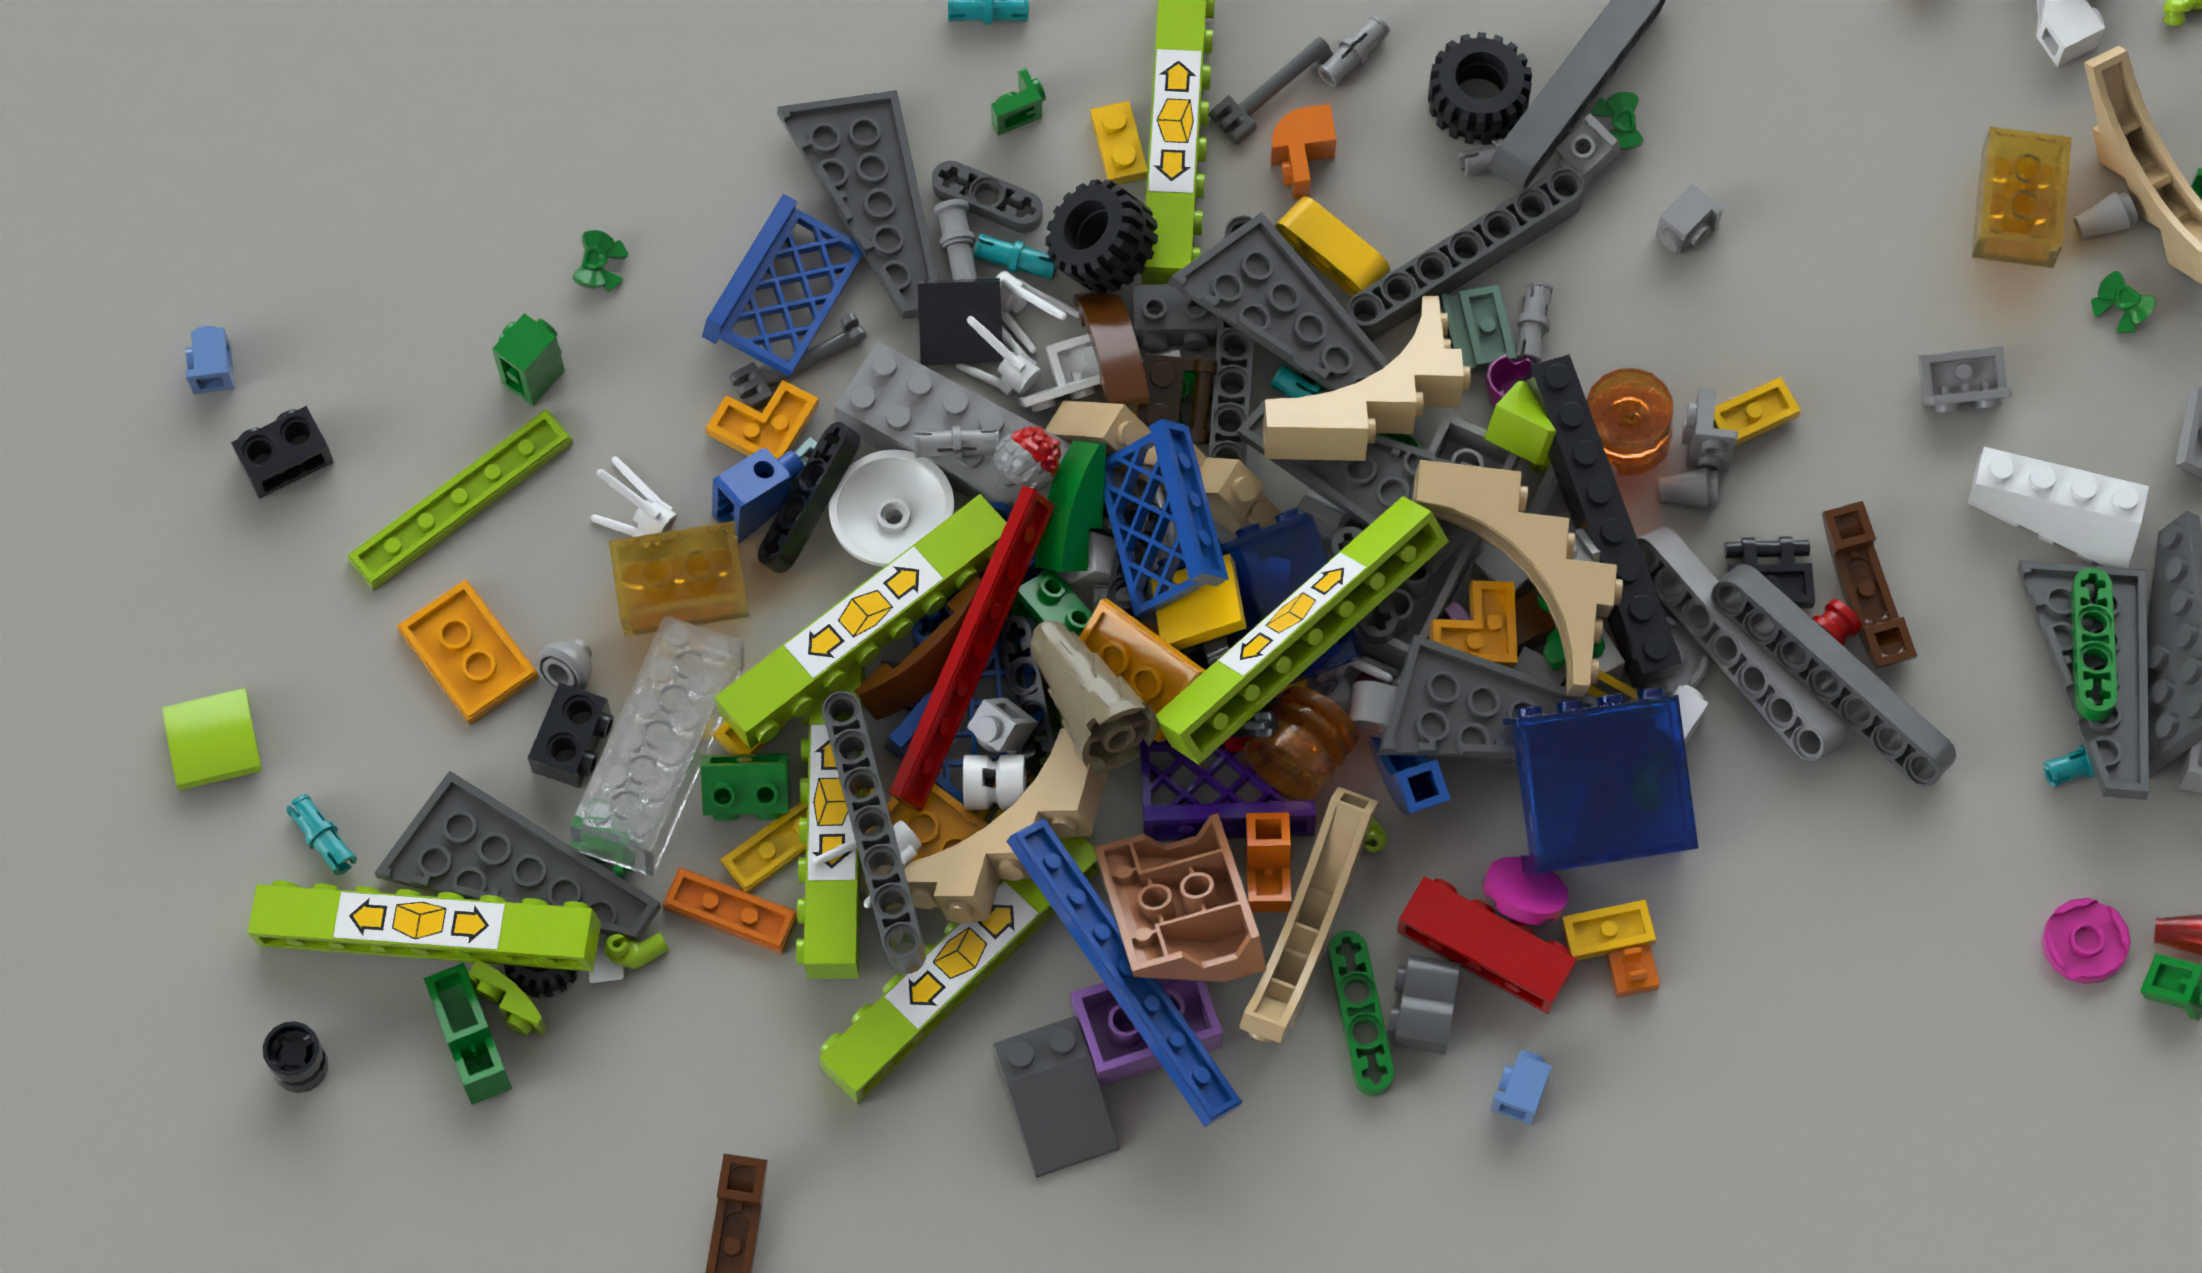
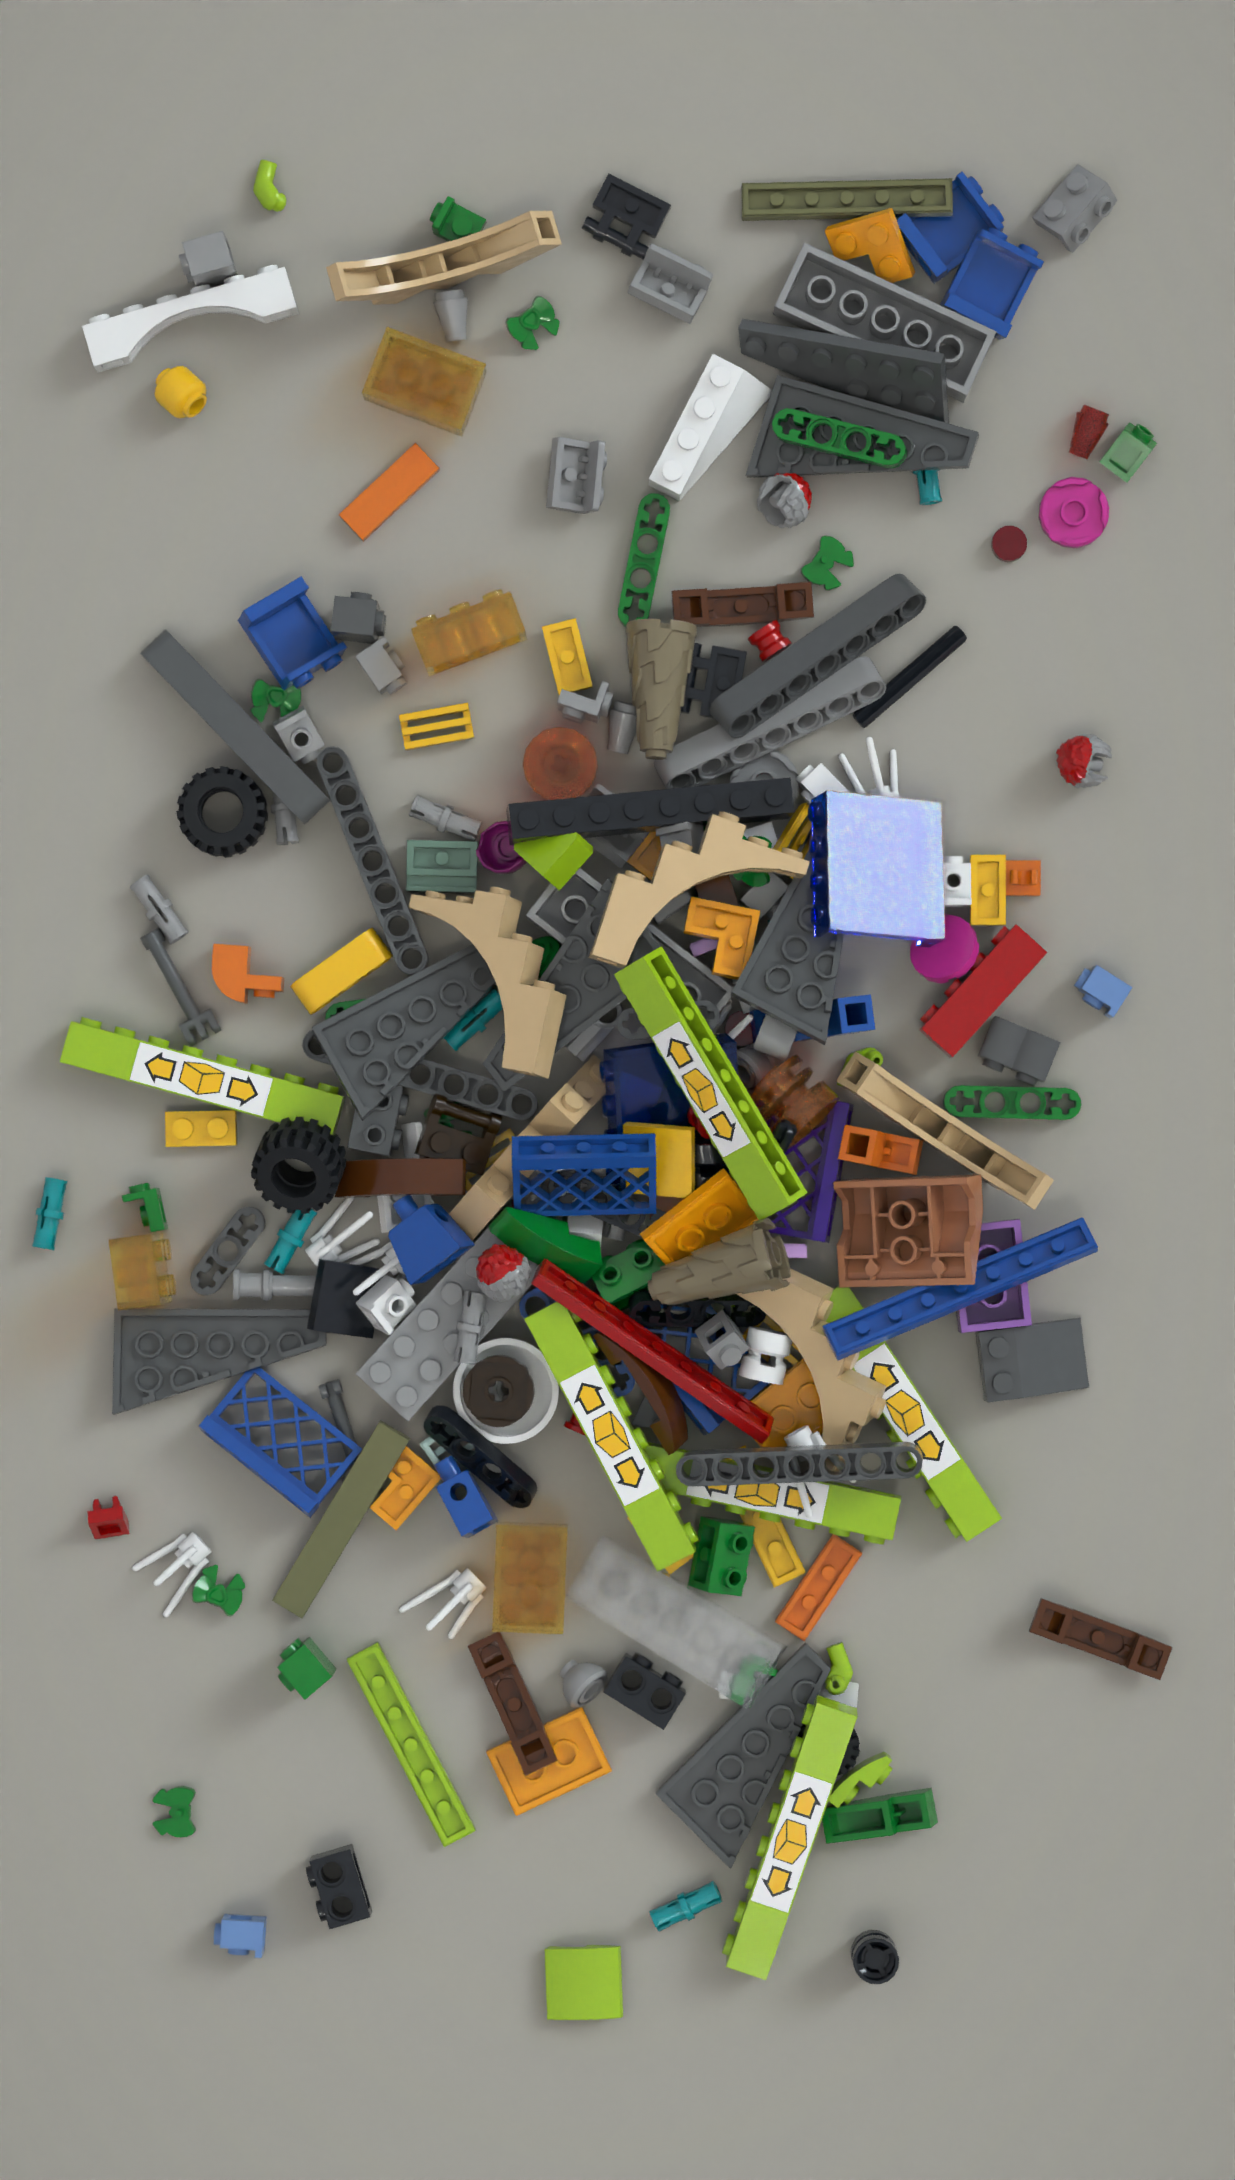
camera: 75 degrees left, 20 degrees up
(340, 273) = (179, 1800): none -> green piece
(530, 596) = (513, 1703): none -> reddish brown slope
(638, 221) = (191, 1551): none -> white plant
(656, 131) = (108, 1521): none -> red tile
(707, 368) = (341, 1519): none -> olive tile
(894, 515) = (483, 1404): none -> dark brown plate
(945, 94) = (142, 1271): none -> clear yellow brick
(960, 350) = (387, 1303): none -> white brick
(1046, 380) = (426, 1239): none -> blue torso
(1124, 792) = (796, 1250): none -> lavender tile
(1594, 895) = (960, 895): none -> white brick
(1622, 265) = (458, 708): none -> yellow tile
(1694, 776) = (880, 789): none -> white plant
(1698, 119) = (291, 635): none -> blue panel
(1735, 175) = (357, 618): none -> dark grey brick
(1751, 295) = (468, 632): none -> clear yellow brick
(1773, 503) = (659, 665): none -> dark tan cone
(1793, 1001) = (1079, 759): none -> piece
(1838, 794) = (912, 675): none -> black axle
(1886, 194) = (389, 492): none -> orange tile
(1888, 482) = (639, 560): none -> green beam
(1933, 666) = (829, 552): none -> green piece
(2004, 605) = (784, 499): none -> light grey piece
(2027, 873) = (1009, 543): none -> dark red tile

